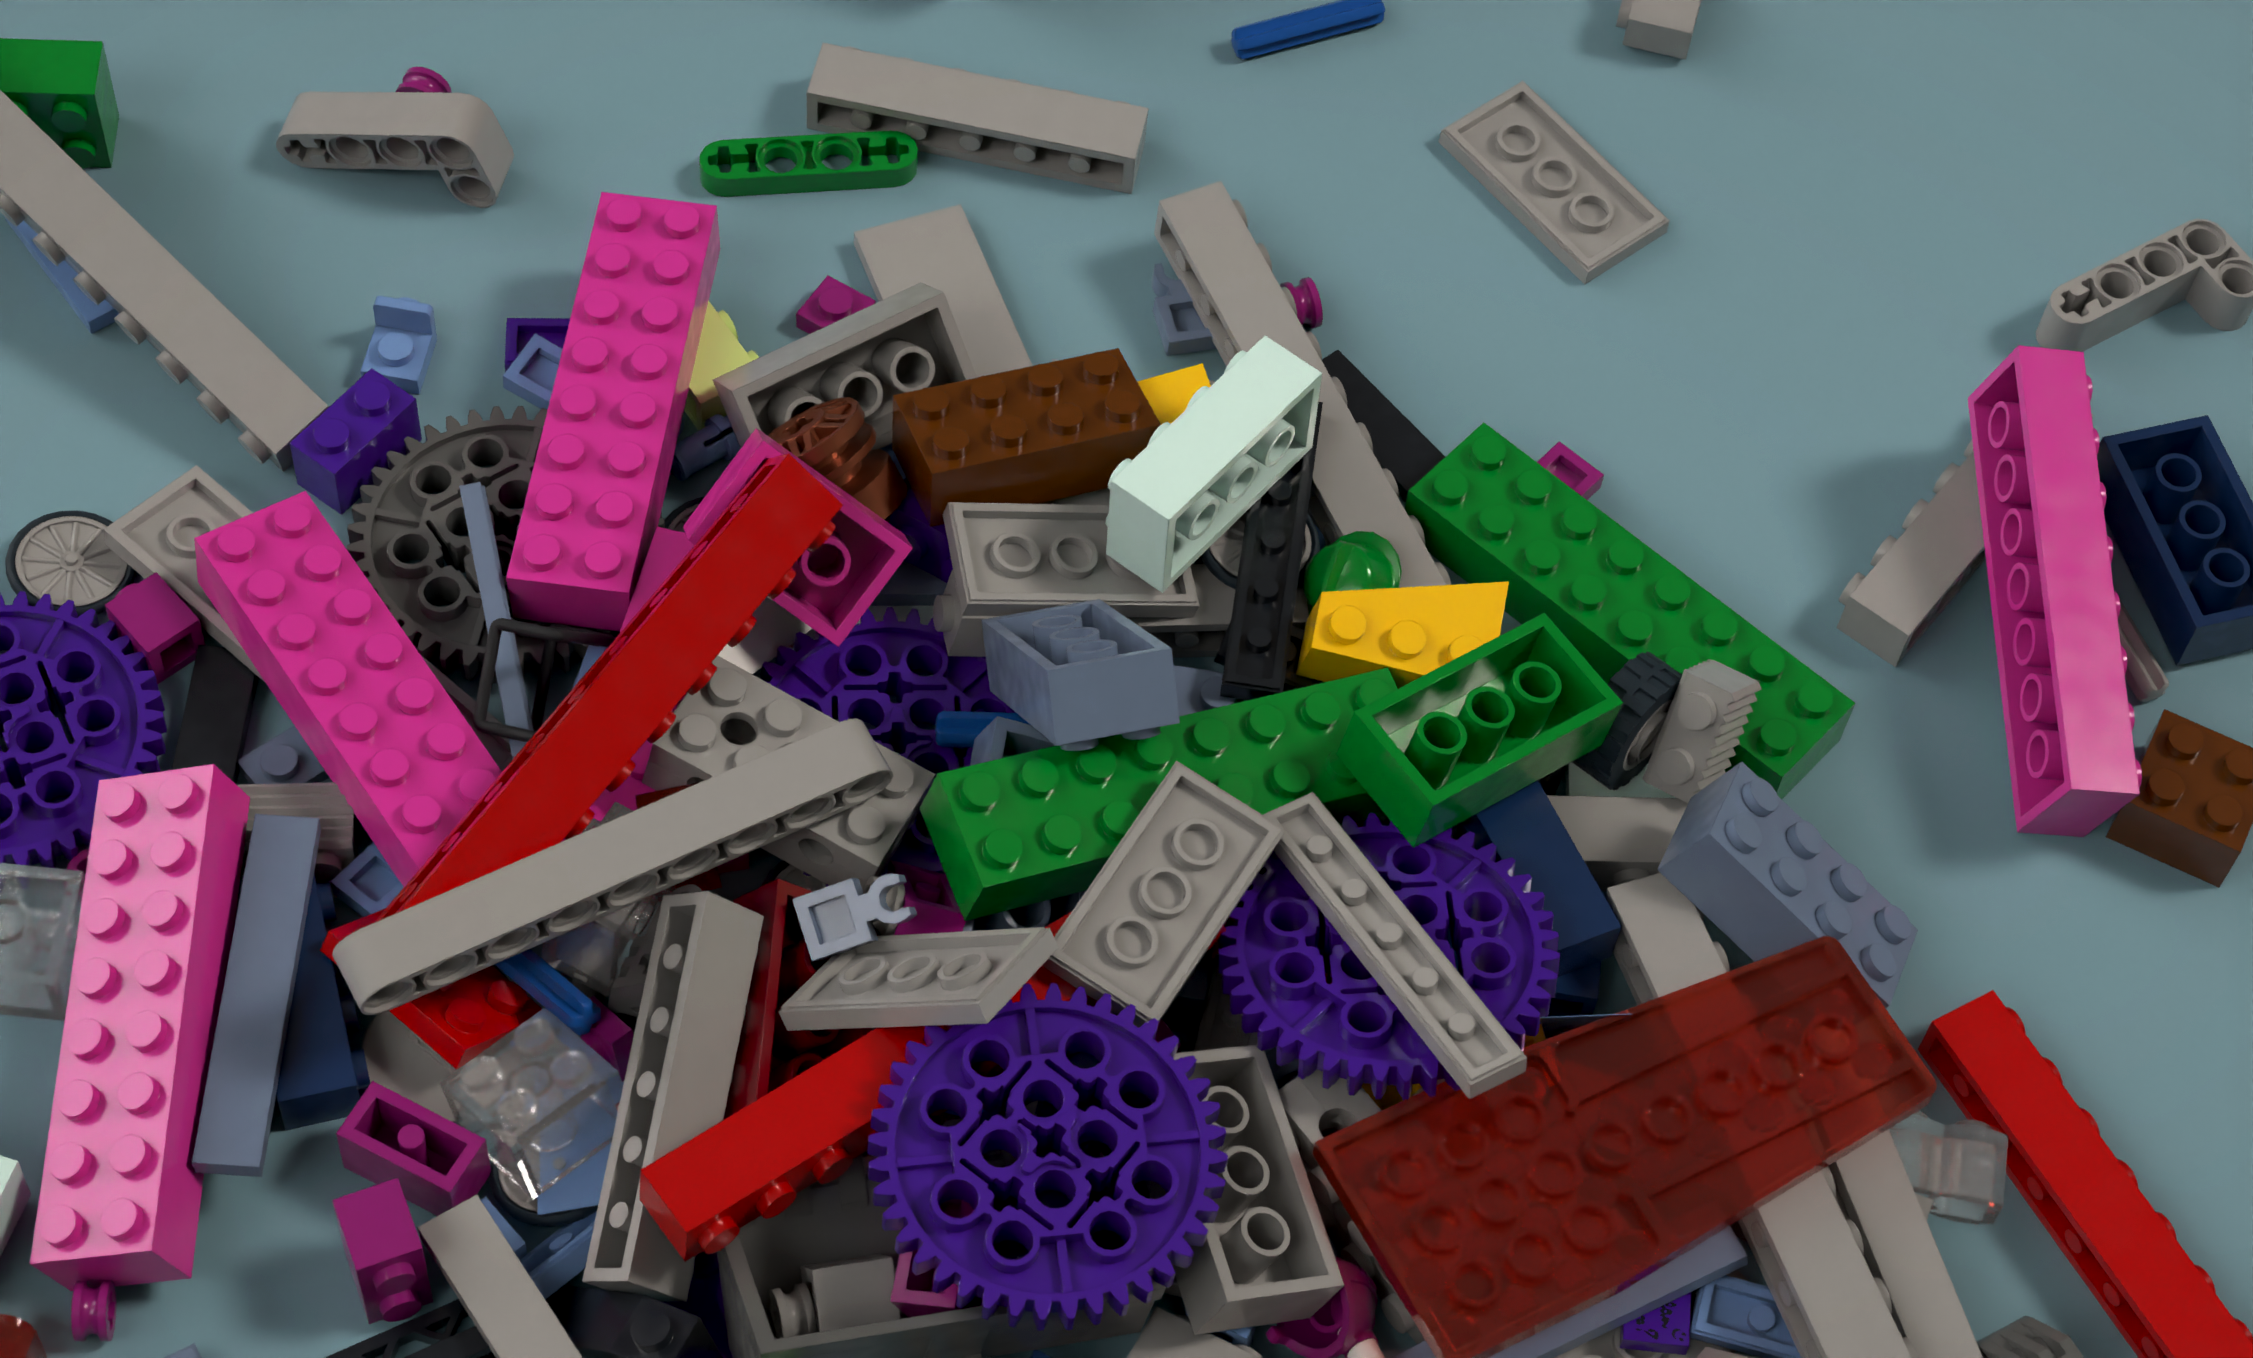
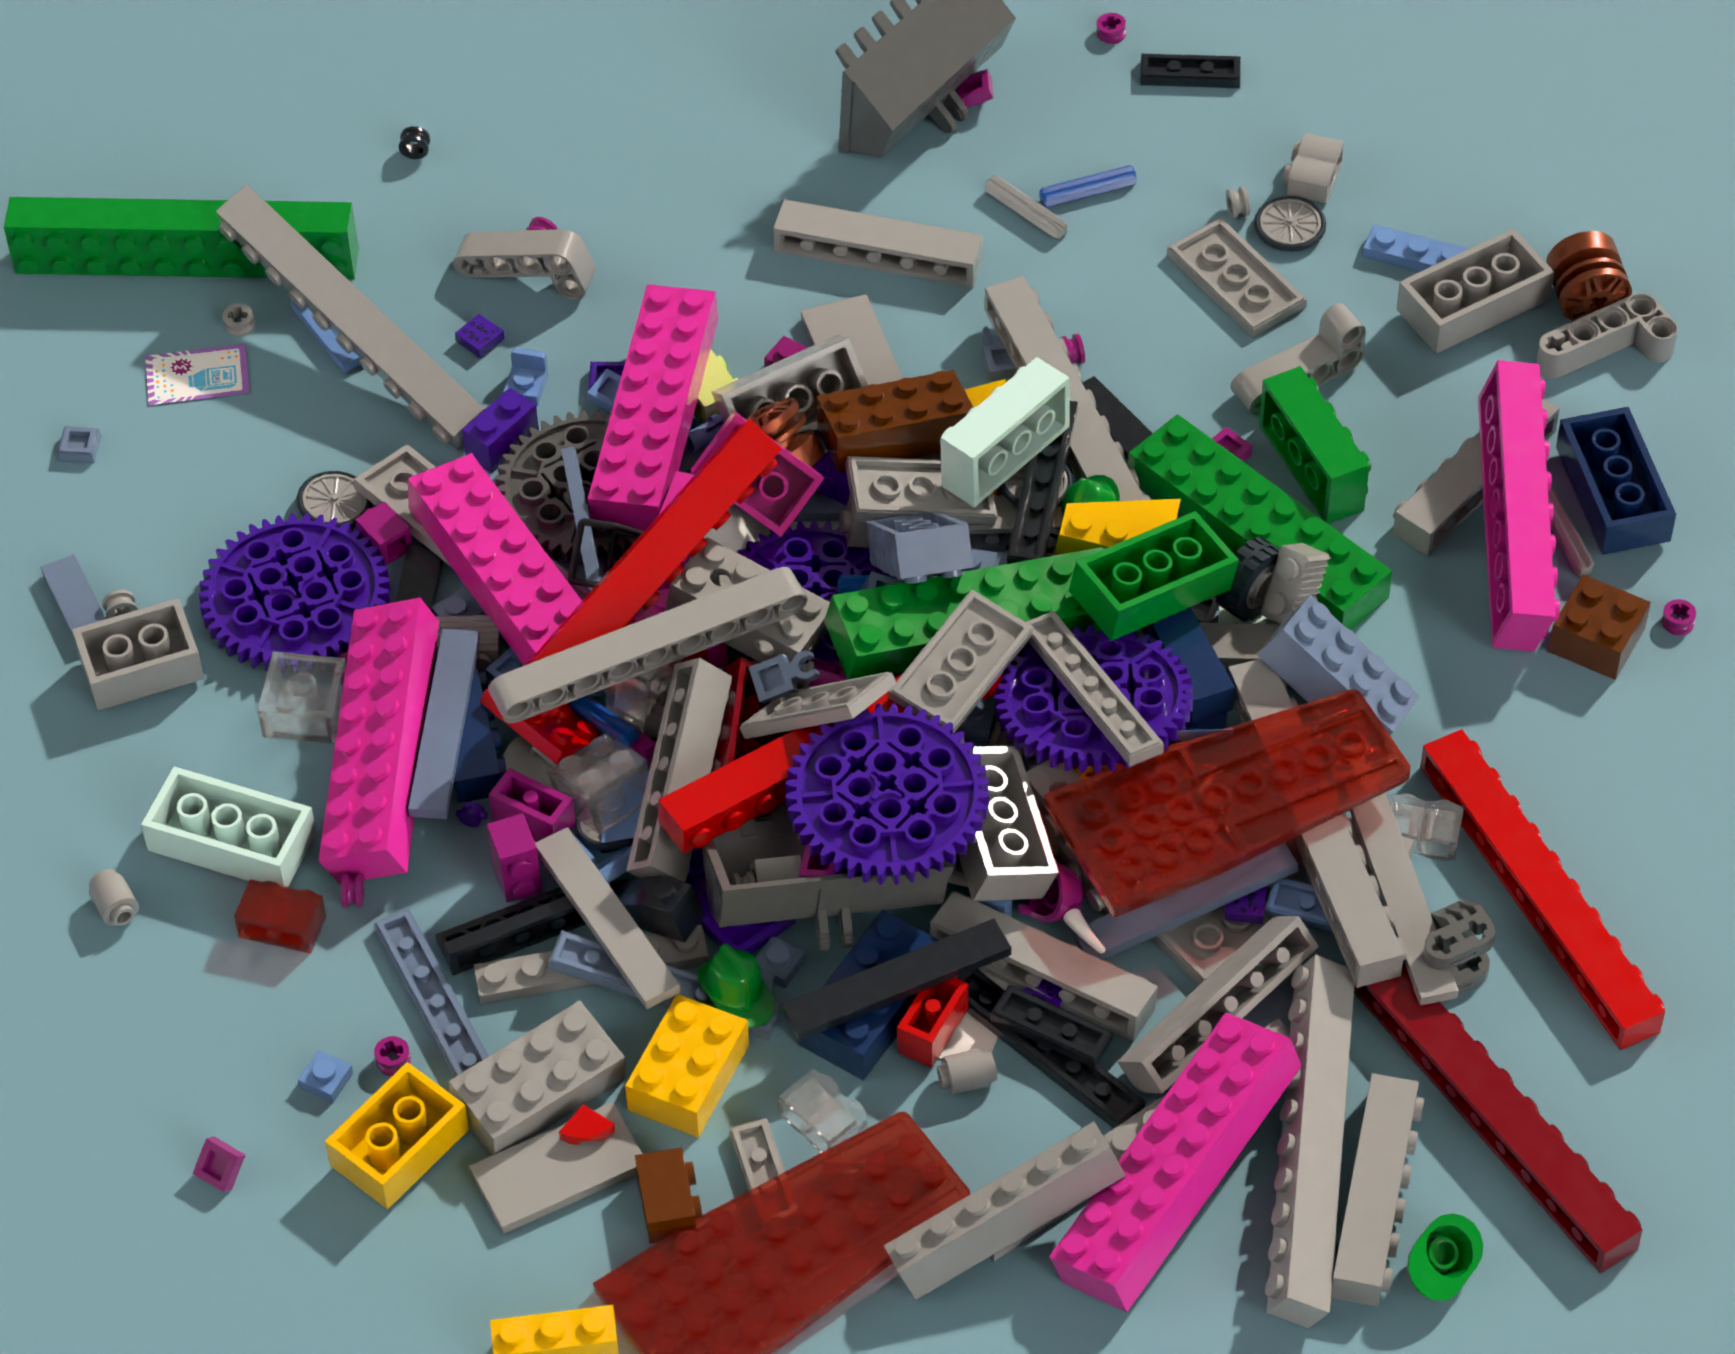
camera: 10 degrees right, 5 degrees down
(307, 1155) = (471, 814): none -> dark purple piece
(320, 270) = (479, 335): none -> dark purple tile
(809, 172) = (774, 267): green beam -> none
(1212, 59) = (1026, 207): none -> light grey axle
(1548, 56) = (1237, 202): none -> light grey bush
(1632, 92) = (1290, 223): none -> light grey wheel
(1676, 334) = (1322, 357): none -> light grey beam
(1708, 476) = (1314, 444): none -> green brick
(1835, 144) = (1407, 249): none -> medium blue plate
(1937, 211) = (1474, 290): none -> light grey brick
(2115, 188) = (1587, 273): none -> copper wheel

